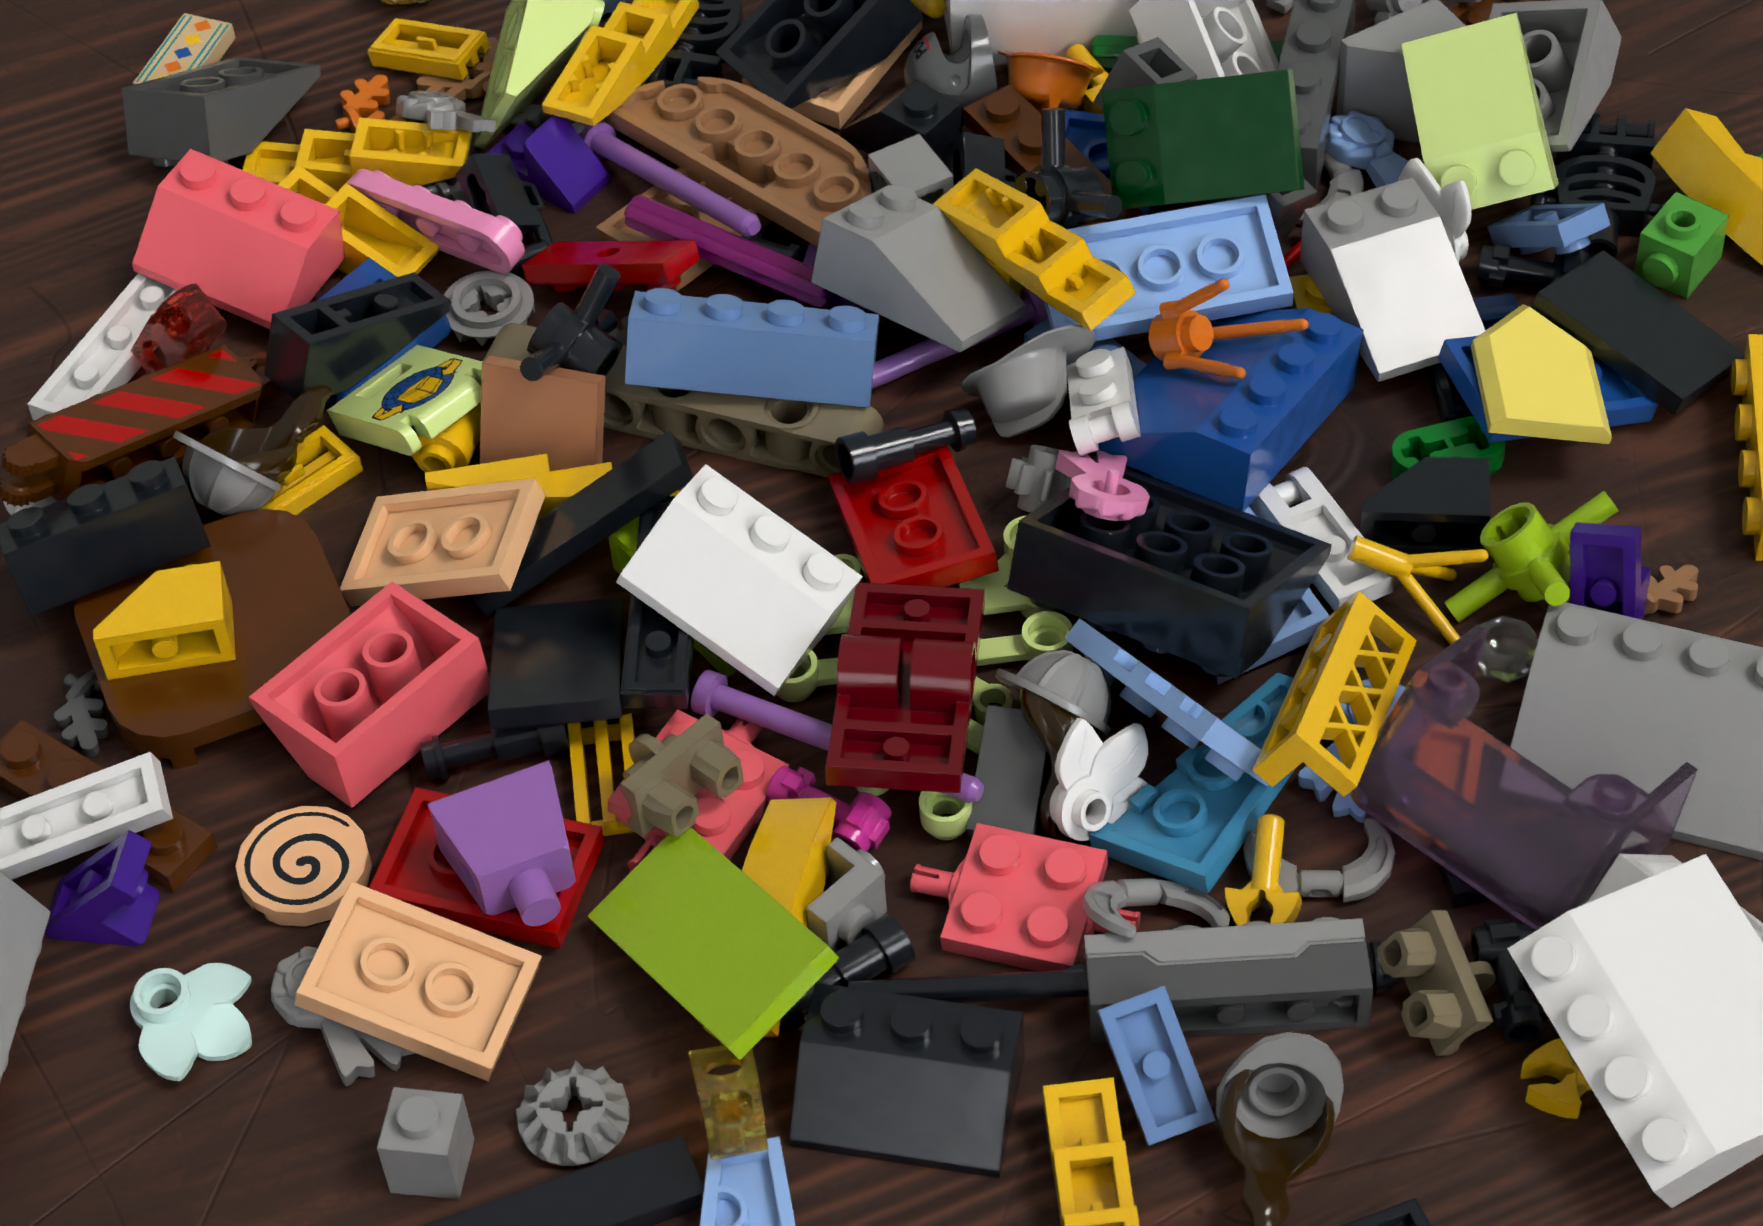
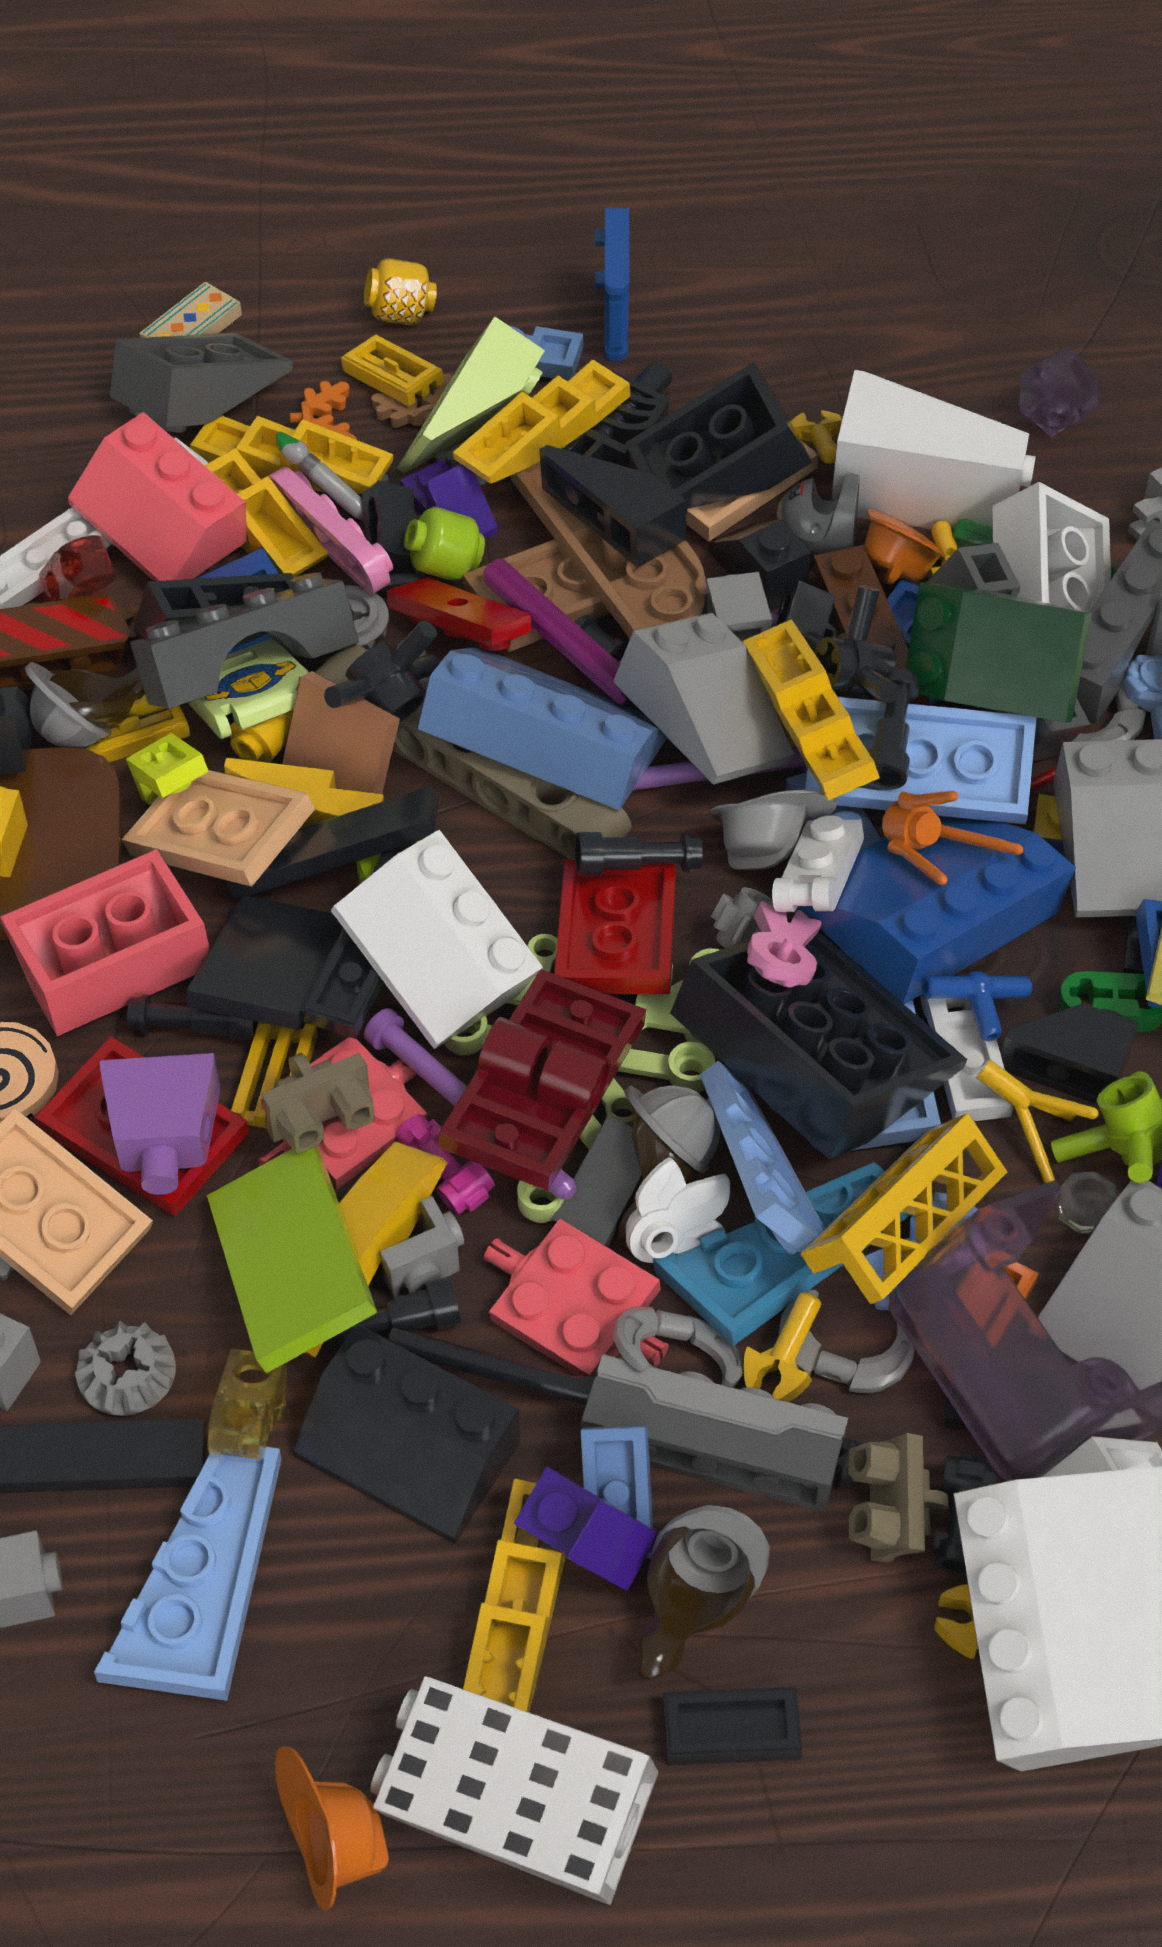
camera: 15 degrees right, 5 degrees up
(349, 381) = (187, 659): none -> dark grey arch
(360, 503) = (165, 767): none -> neon yellow bracket
(372, 150) = (323, 476): none -> light grey piece
(441, 112) = (375, 431): light grey piece -> none
(565, 201) = (444, 543): none -> lime head
(604, 144) = (501, 498): medium lavender bar -> none
(737, 106) = (616, 502): none -> black slope
(1128, 249) = (893, 734): none -> black piece
(1144, 1108) = (586, 1528): none -> dark purple slope
(1318, 477) = (980, 992): none -> blue piece

